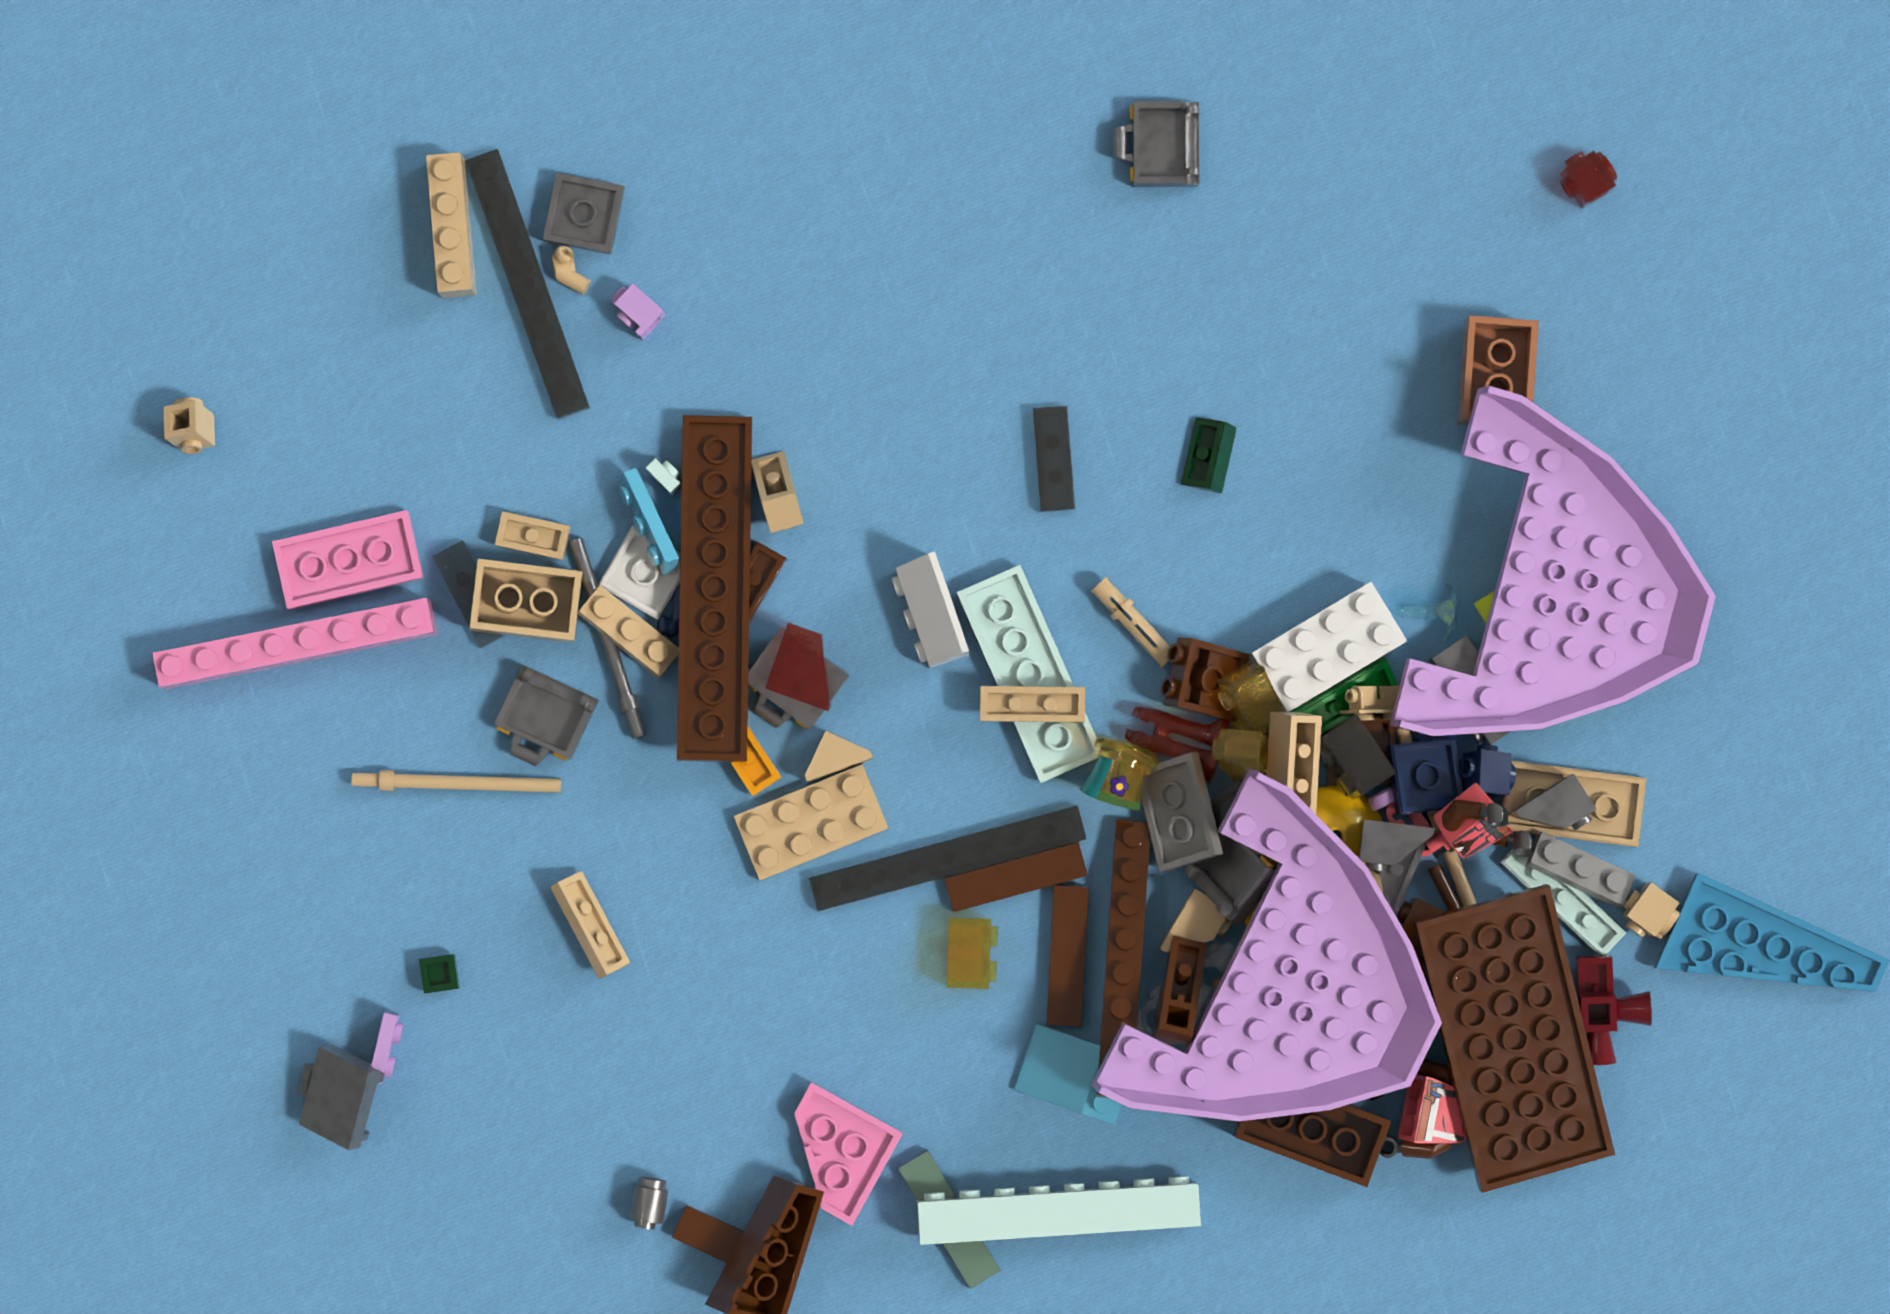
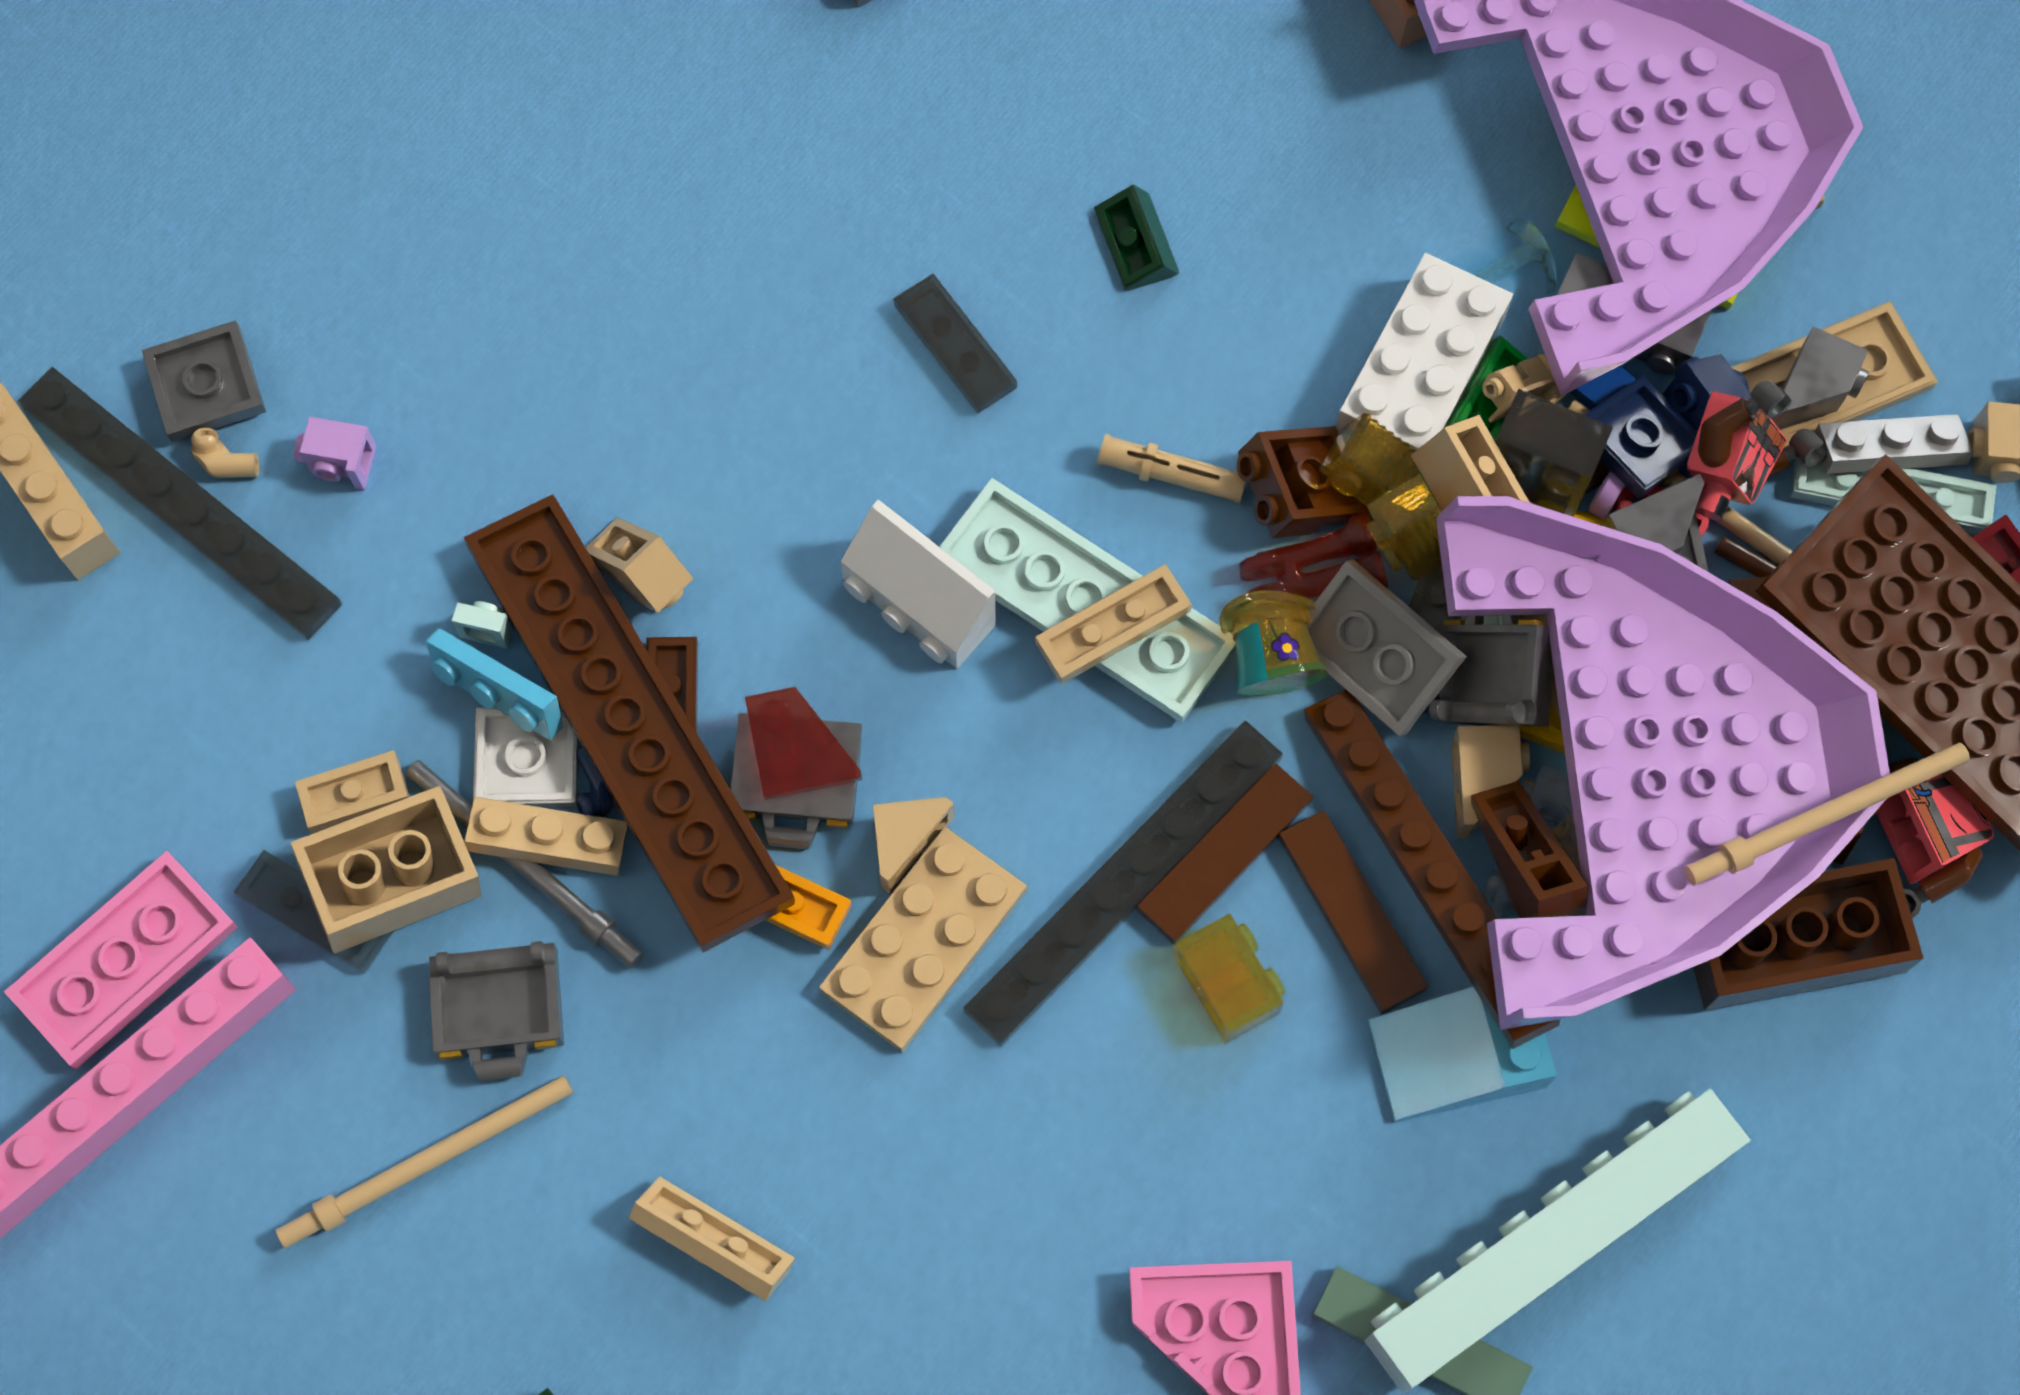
camera: 35 degrees left, 15 degrees down
(1291, 1070) = (1741, 852): none -> tan bar

